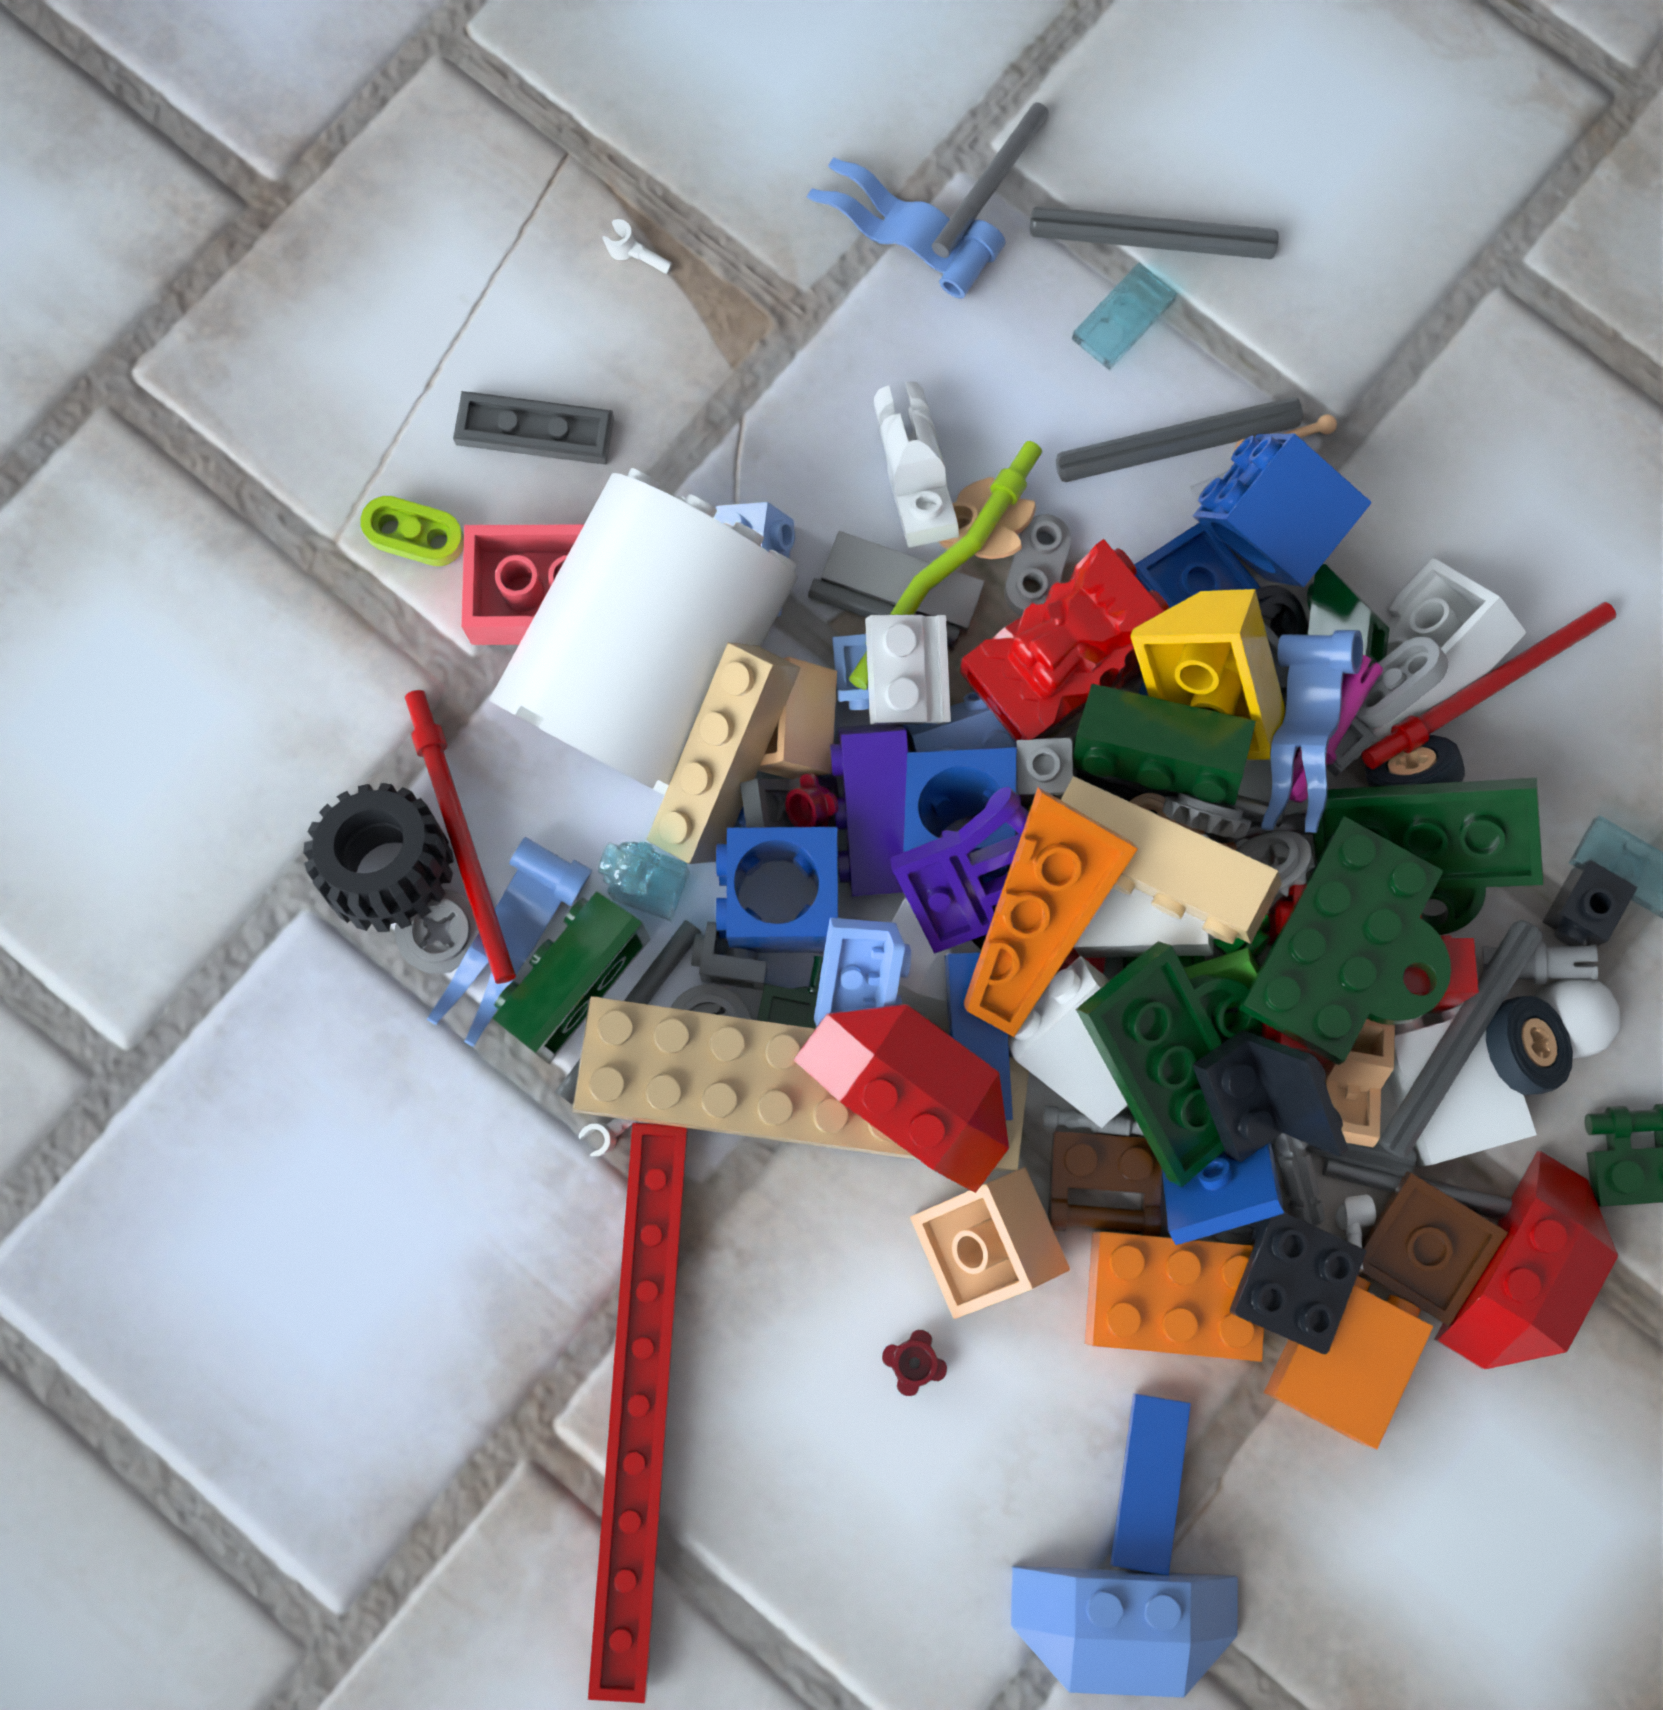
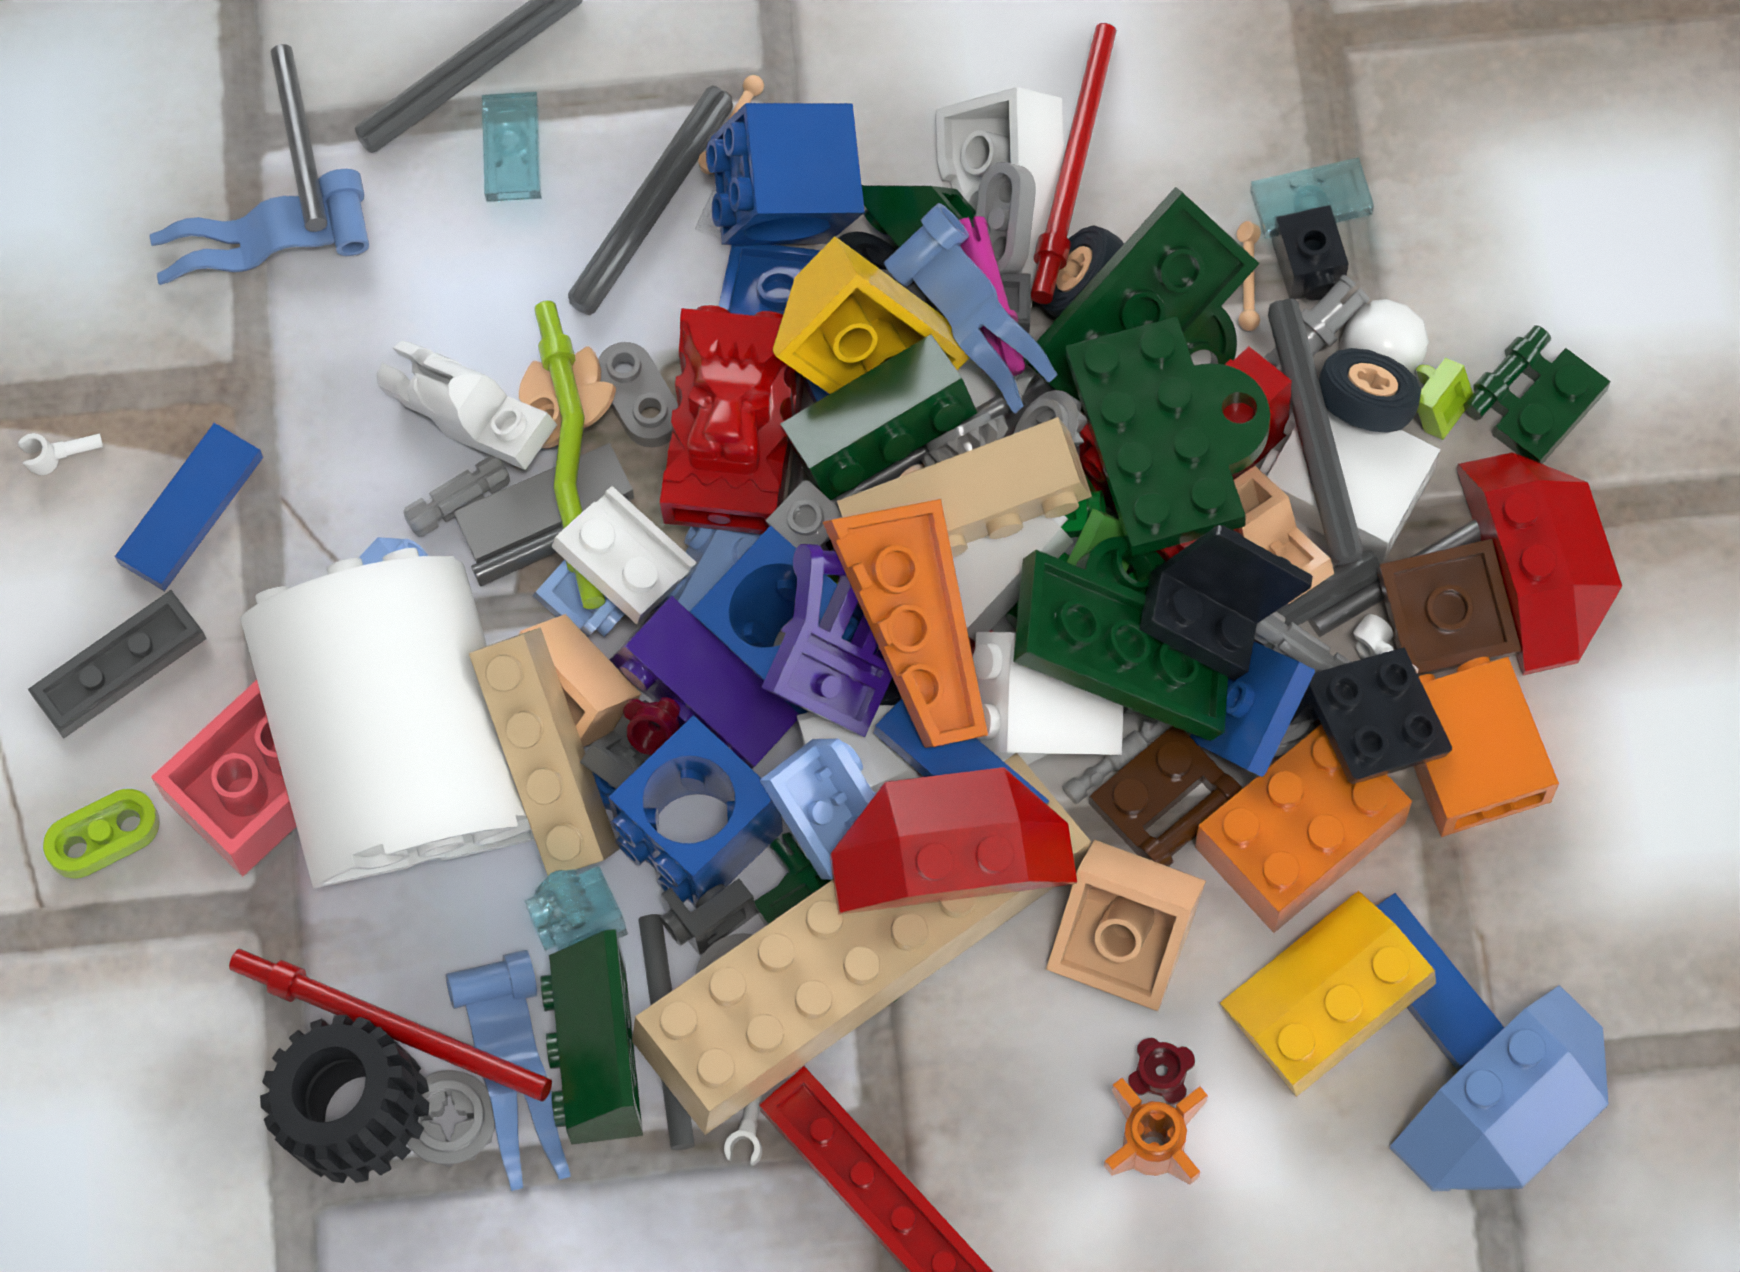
camera: 40 degrees left, 10 degrees down
(679, 365) = (189, 506): none -> blue tile
(852, 520) = (455, 494): none -> light grey axle
(867, 1425) = (1157, 1121): none -> orange brick
(1074, 1427) = (1329, 992): none -> yellow slope
(1560, 849) = (1249, 319): none -> light nougat hinge
(1579, 1095) = (1442, 396): none -> lime tile

